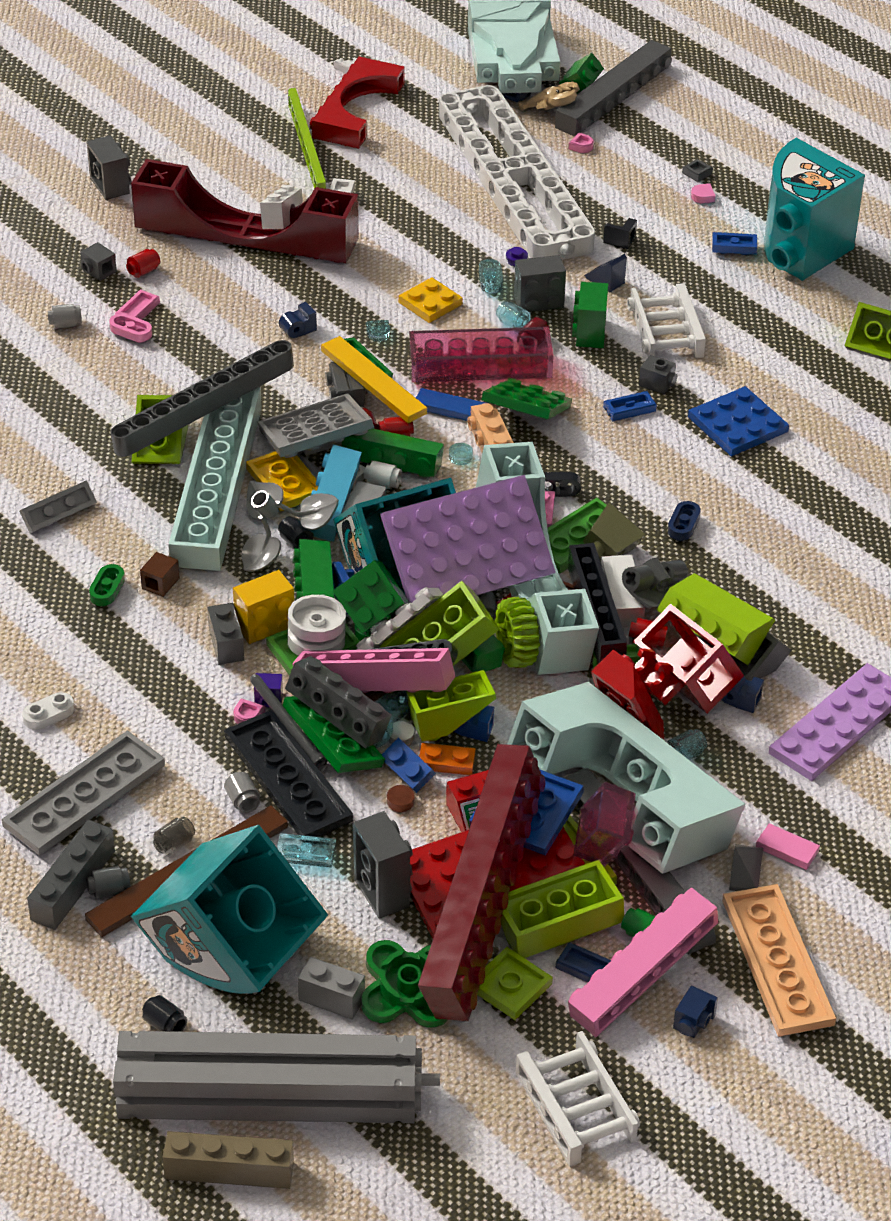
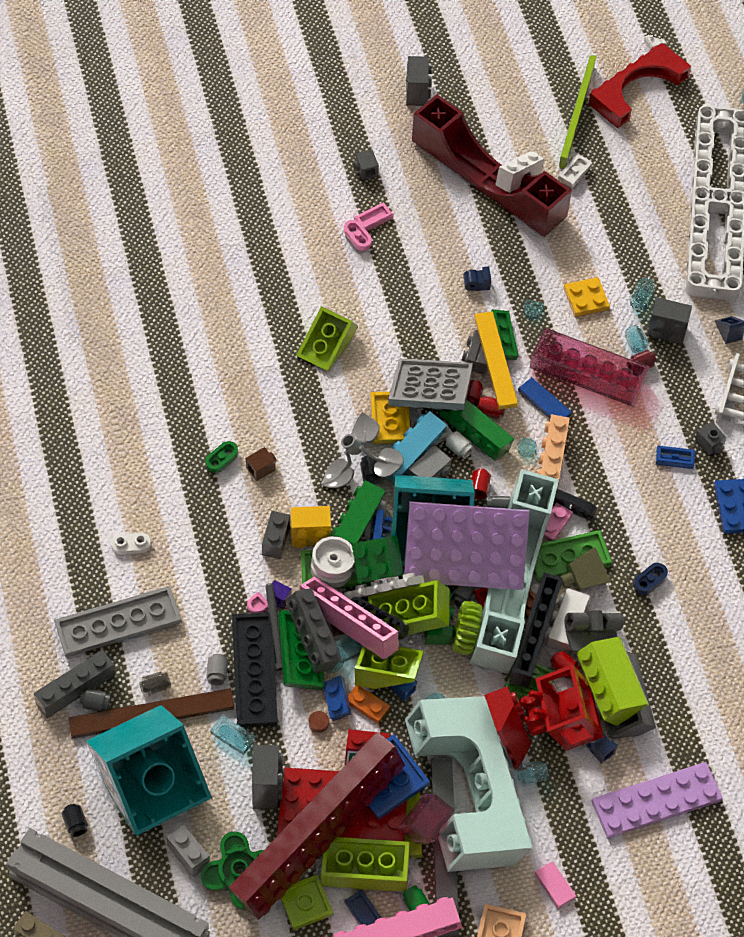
camera: 25 degrees right, 15 degrees up
(58, 506) = (224, 375): light grey plate -> none
(65, 316) = (317, 206): light grey brick -> none
(143, 262) = (397, 178): red brick -> none
(202, 398) = (362, 330): dark grey beam -> none
(214, 484) = (341, 397): light aqua brick -> none
(404, 731) = (348, 669): light grey tile -> none
(516, 253) = (673, 282): dark purple plate -> none
(527, 398) = (598, 423): green plate -> none
(590, 314) = (690, 365): green brick -> none
(745, 867) = (516, 887): dark grey slope -> none

